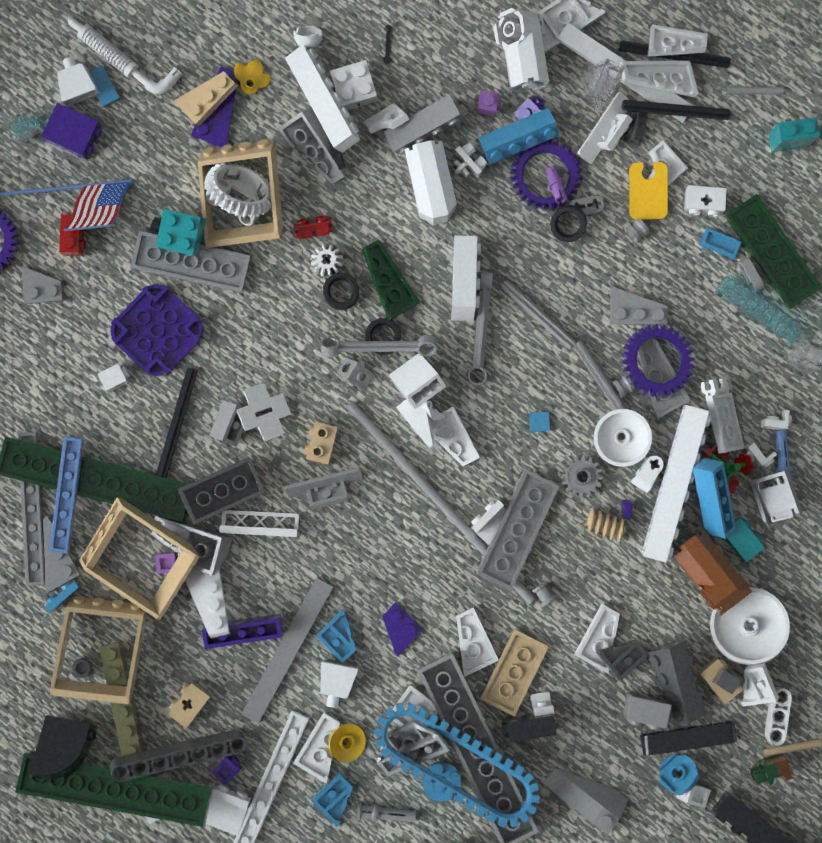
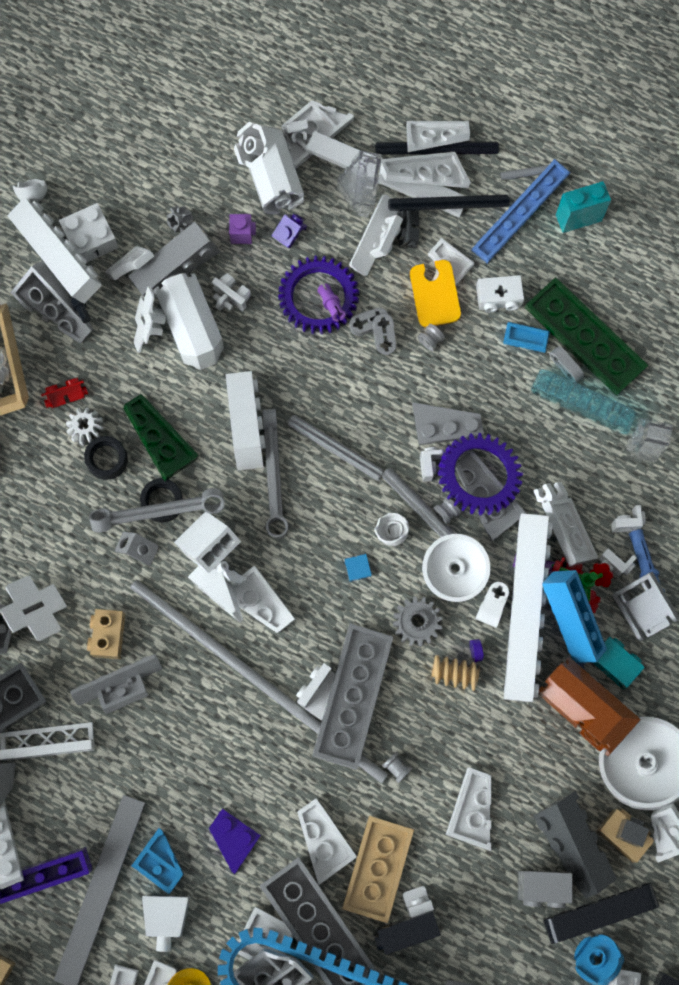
camera: 10 degrees left, 10 degrees down
(387, 59) = (122, 202): black hinge -> none
(396, 178) = (150, 323): none -> white piece
(435, 85) = (179, 218): none -> light grey gear
(518, 136) = (280, 257): dark azure brick -> none
(551, 16) = (296, 127): none -> white tile
(554, 223) = (336, 341): black tyre -> none
(579, 391) = (398, 529): none -> white hair
(592, 220) = (389, 332): none -> light grey beam
(614, 344) = (428, 466): none -> white bracket
(622, 657) = (504, 828): dark grey wing -> none
(738, 126) = (520, 211): none -> medium blue tile

